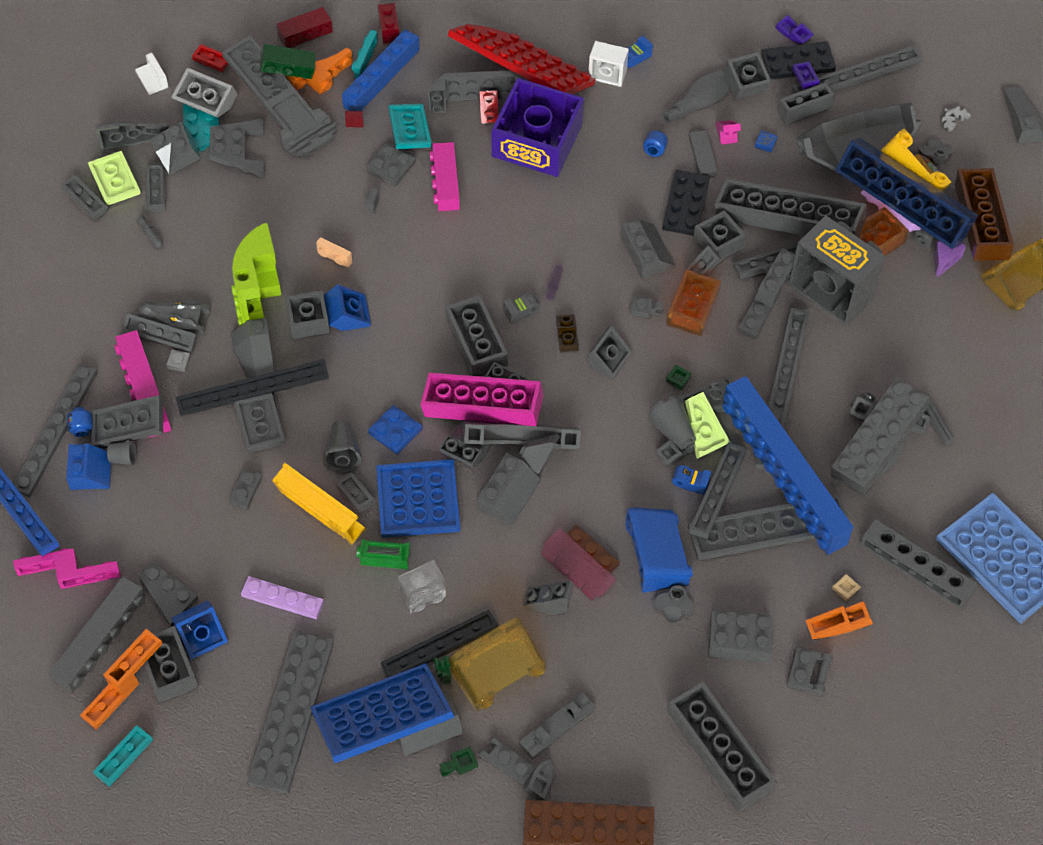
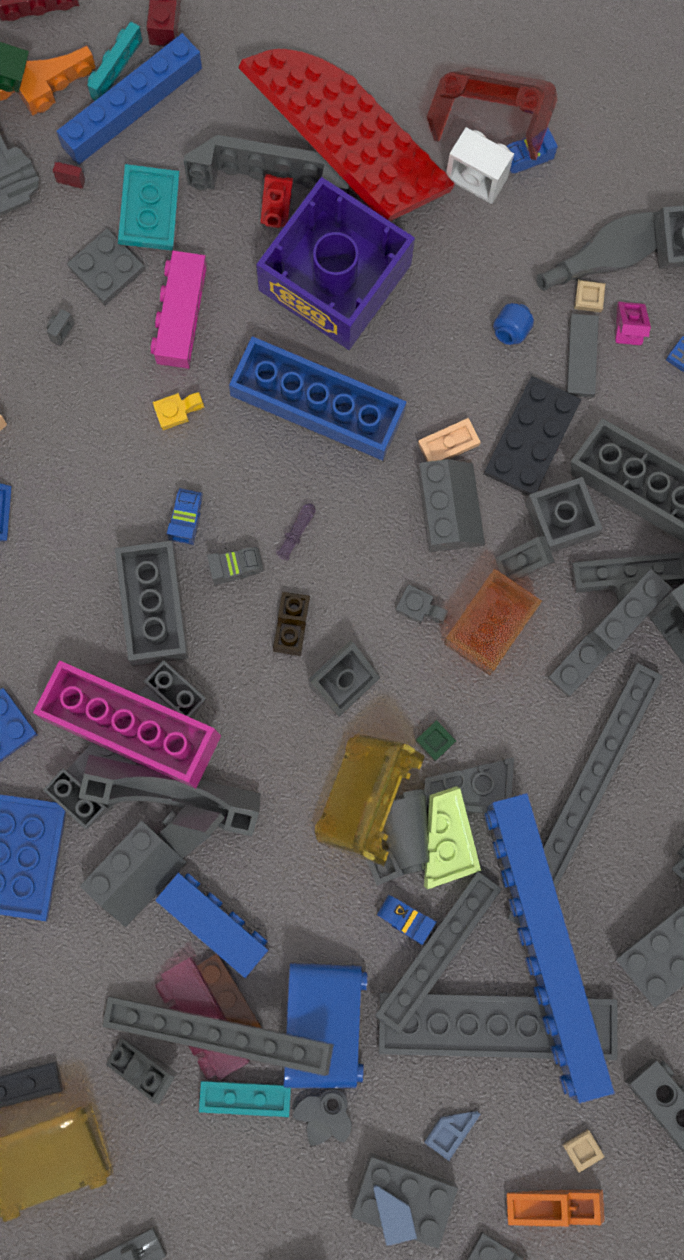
camera: 10 degrees right, 20 degrees up
(457, 233) = (173, 411): none -> yellow plate
(483, 285) = (185, 517): none -> blue leg
(546, 205) = (317, 398): none -> blue brick
(568, 507) = (212, 925): none -> blue brick
(592, 558) = (219, 1035): none -> dark grey plate
(606, 23) = (528, 94): none -> clear red windscreen
(619, 603) = (244, 1098): none -> teal plate
(641, 210) = (449, 441): none -> light nougat plate
(643, 410) = (365, 795): none -> clear yellow windscreen
(697, 122) = (589, 296): none -> tan tile
(737, 635) = (394, 1217): none -> sand blue tile
(757, 596) = (450, 1132): none -> sand blue tile

